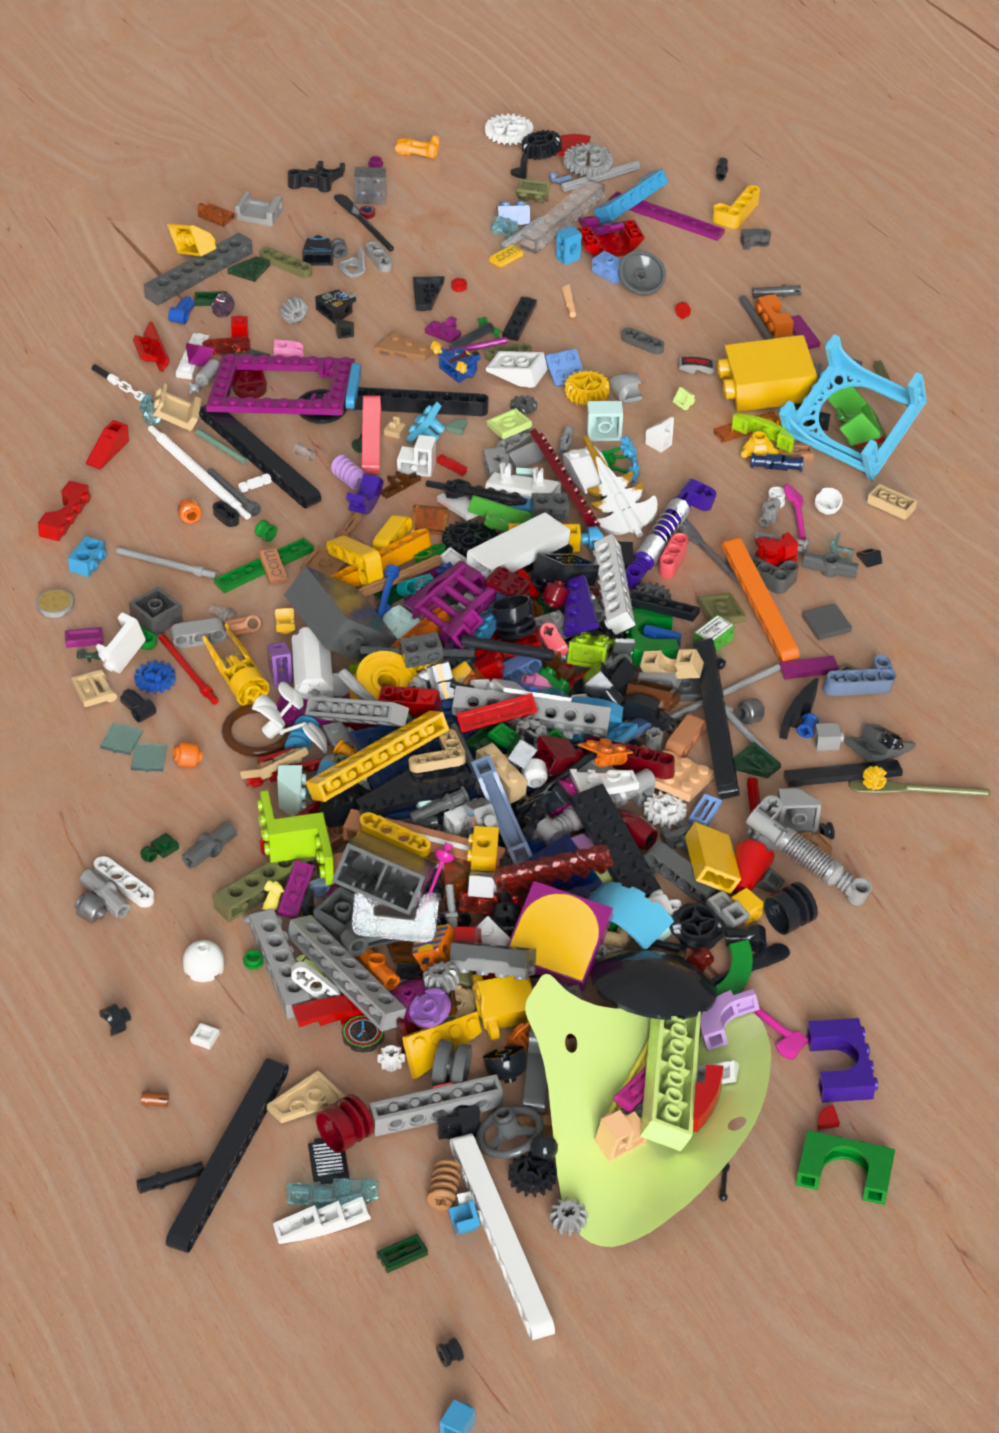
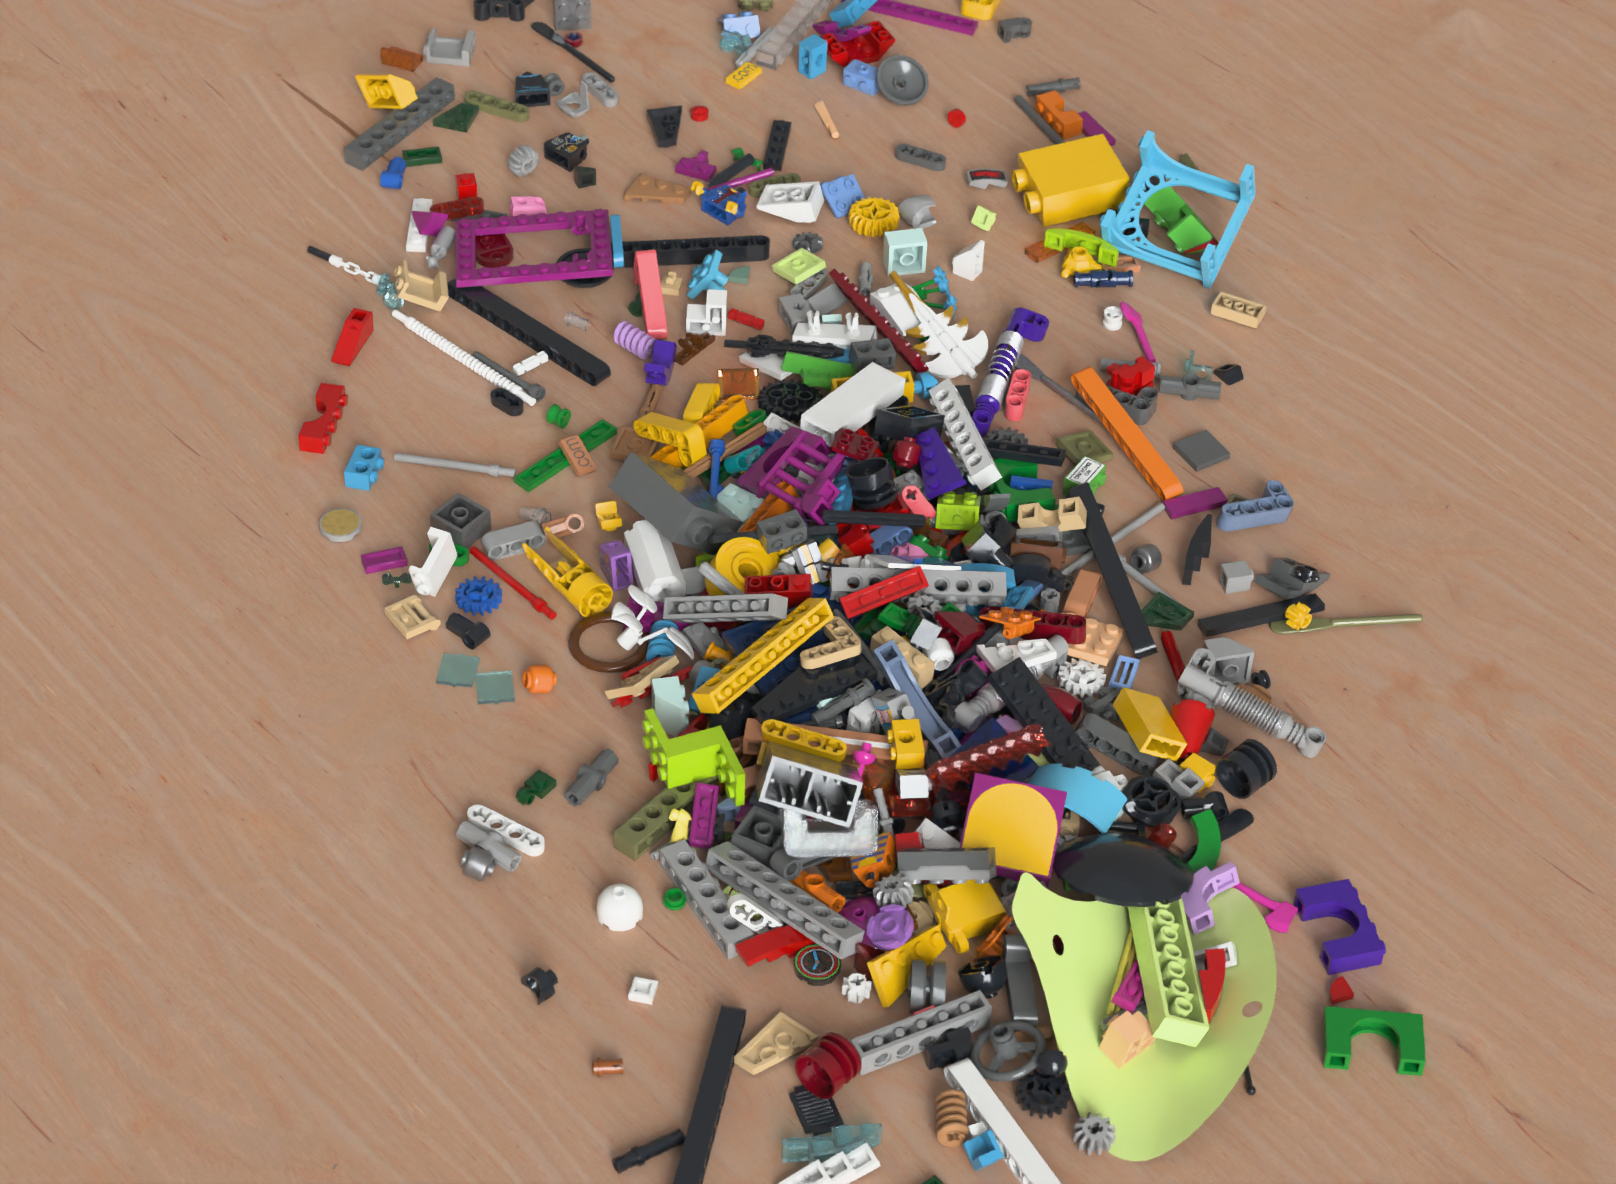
camera: 10 degrees left, 0 degrees up
(151, 348) = (371, 220): red bracket -> none
(189, 511) = (466, 403): orange head -> none
(221, 446) = (481, 325): sand green bar -> none
(223, 305) = (440, 163): clear purple head -> none
(769, 512) = (1110, 335): light grey axle -> none
(808, 723) = (1211, 564): blue bush -> none
(828, 501) = (1170, 316): white hair -> none

